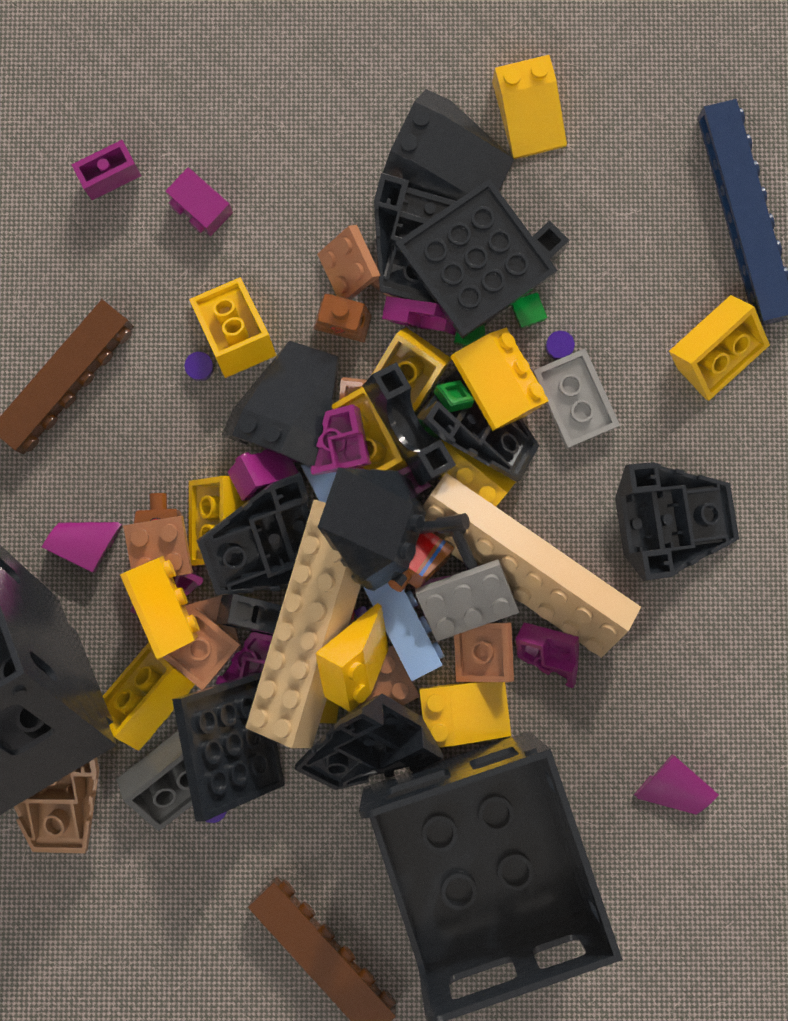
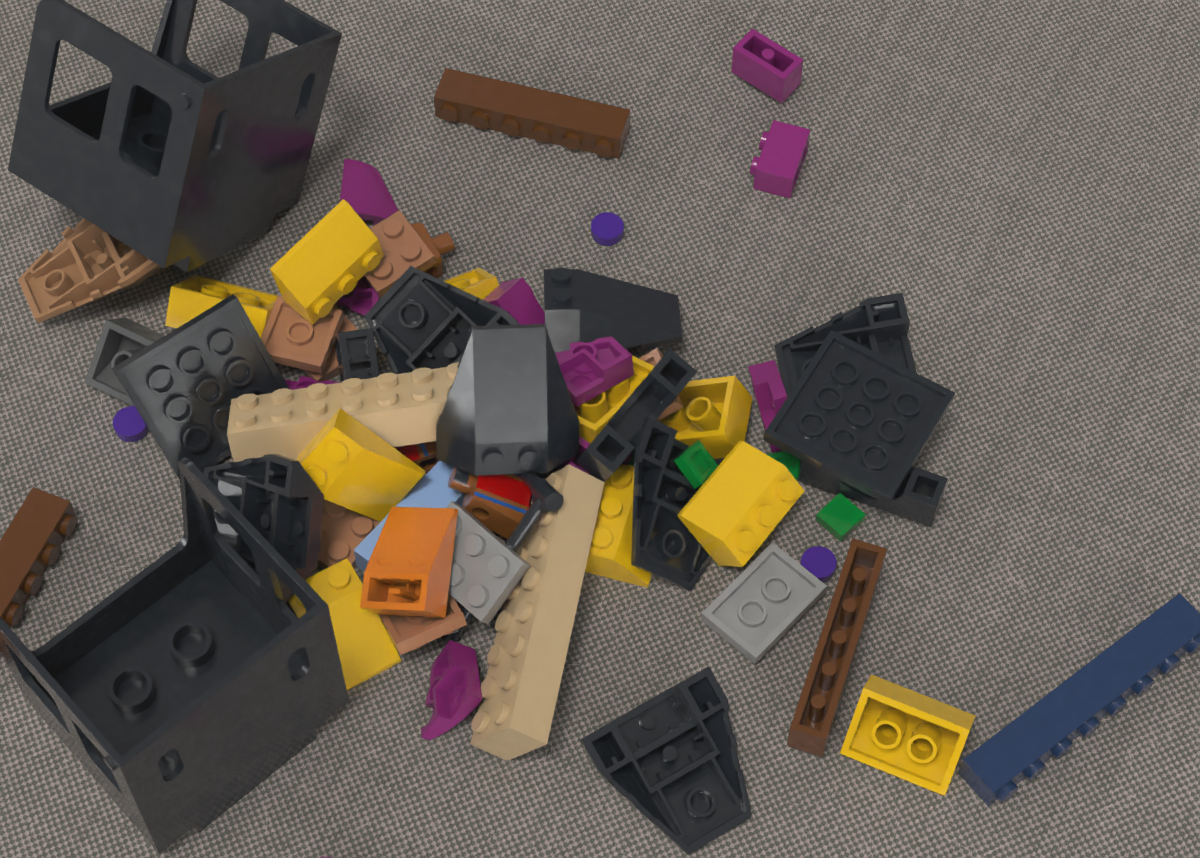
camera: 65 degrees right, 25 degrees down
(233, 327) = (662, 240): yellow slope -> none
(343, 318) = (728, 321): dark orange torso -> none
(348, 263) = (789, 311): nougat plate -> none
(445, 150) = (979, 354): black wedge -> none
(455, 646) = (411, 563): none -> orange slope
(530, 106) = (1072, 423): yellow slope -> none
(639, 364) = (836, 648): none -> reddish brown brick

